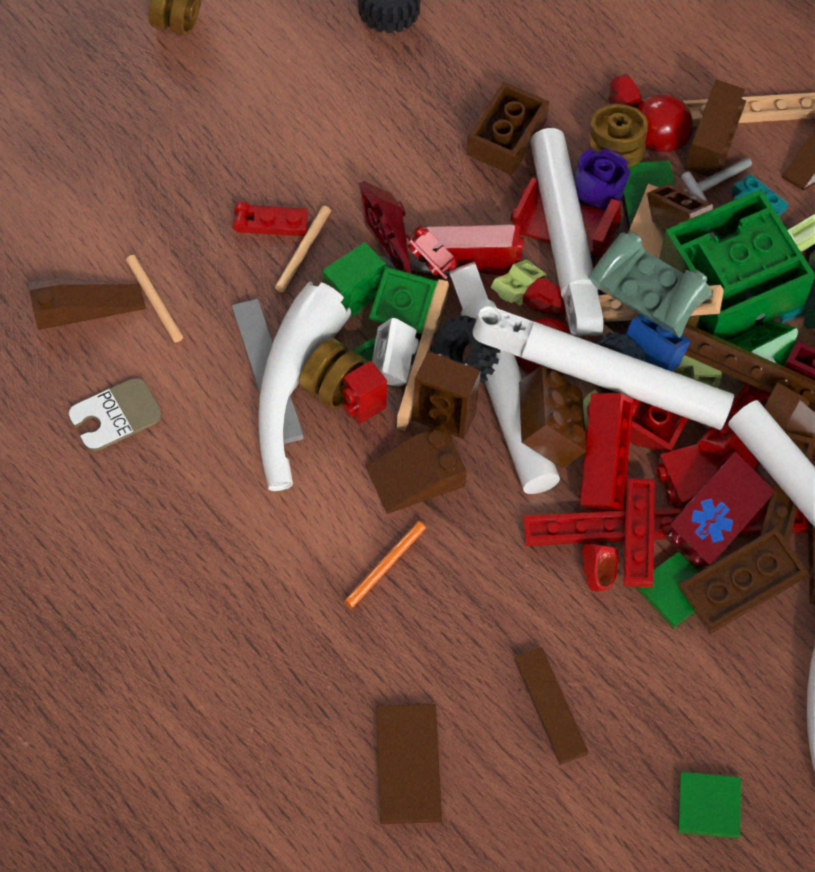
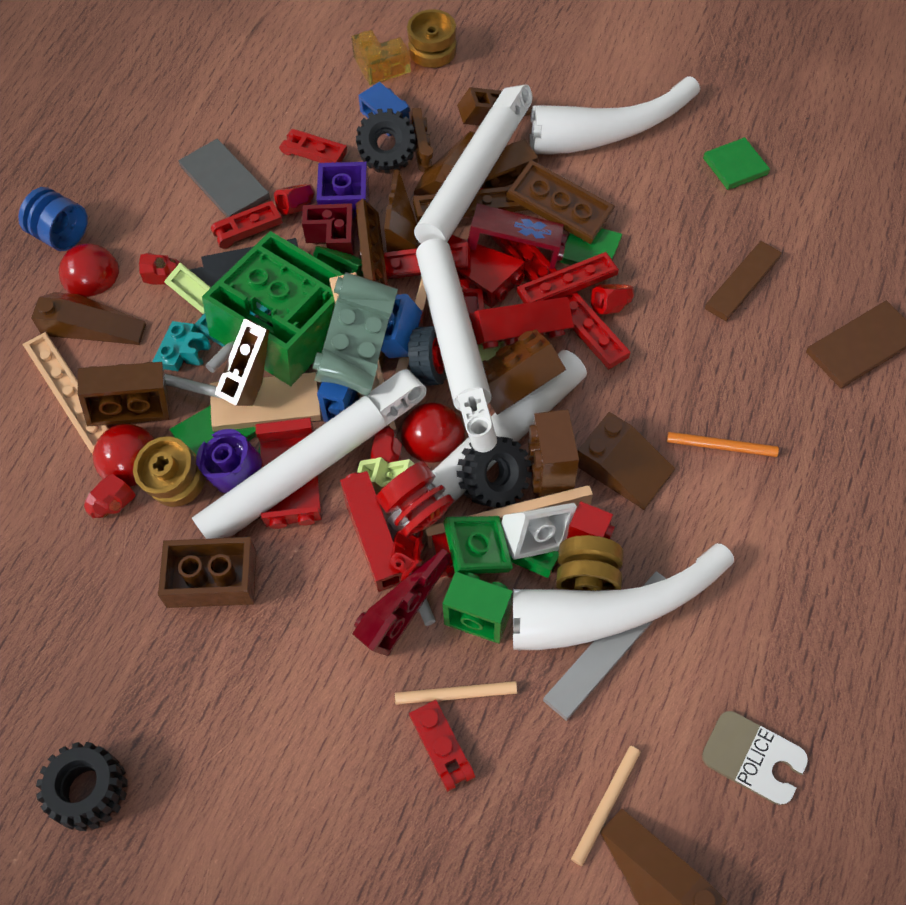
camera: 115 degrees left, 0 degrees up
(465, 265) = (417, 502): none -> red wheel

